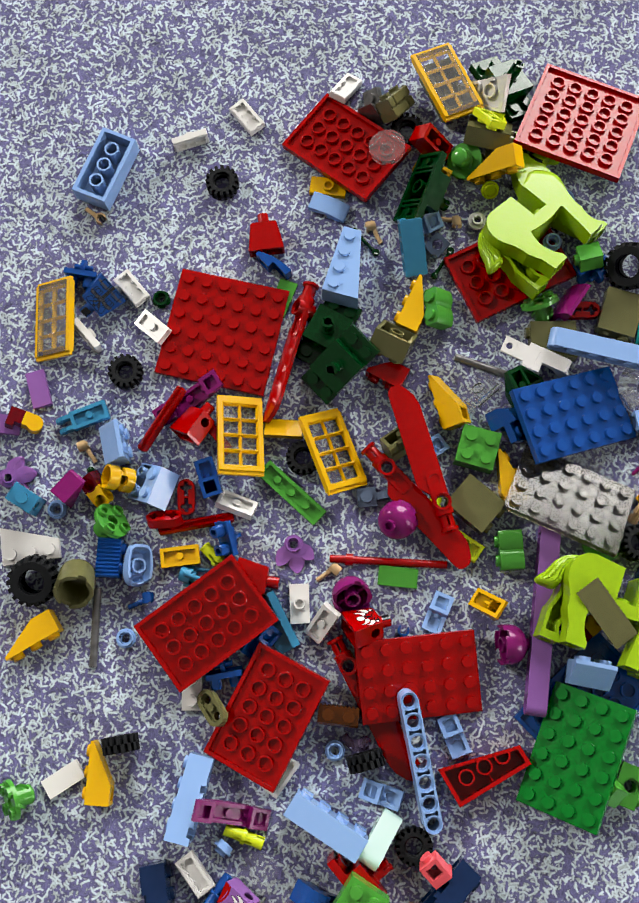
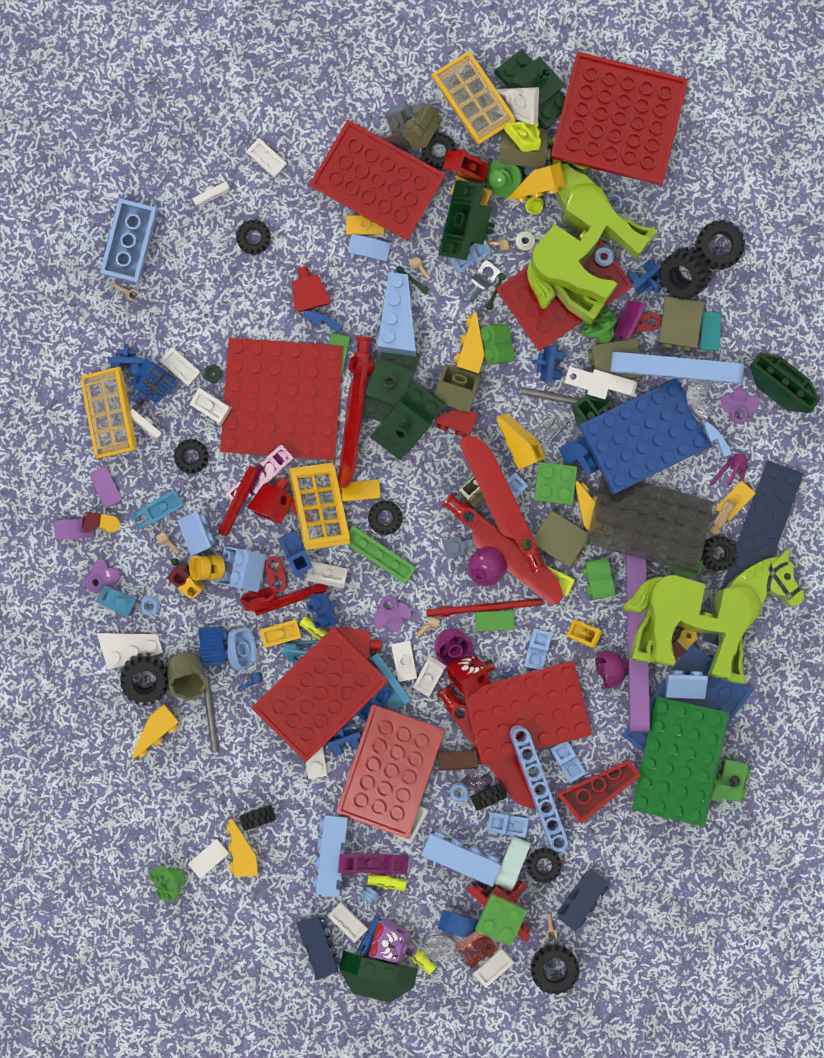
camera: 10 degrees left, 10 degrees up
(69, 488) = (160, 584): magenta slope -> none
(110, 522) = (206, 611): bright green plate -> none
(119, 638) = (237, 724): light blue plate -> none
(212, 709) = (338, 773): olive plate -> none
(332, 451) = (413, 507): yellow piece -> none
(345, 88) = (366, 111): white plate -> none
(387, 147) = (421, 179): clear tile -> none
(412, 246) = (462, 285): dark azure panel -> none
(435, 869) = (568, 885): coral brick -> none
(482, 335) = (546, 363): none -> blue hips
(588, 257) = (641, 270): bright green brick -> none
(607, 613) = (691, 629): olive sticker -> none

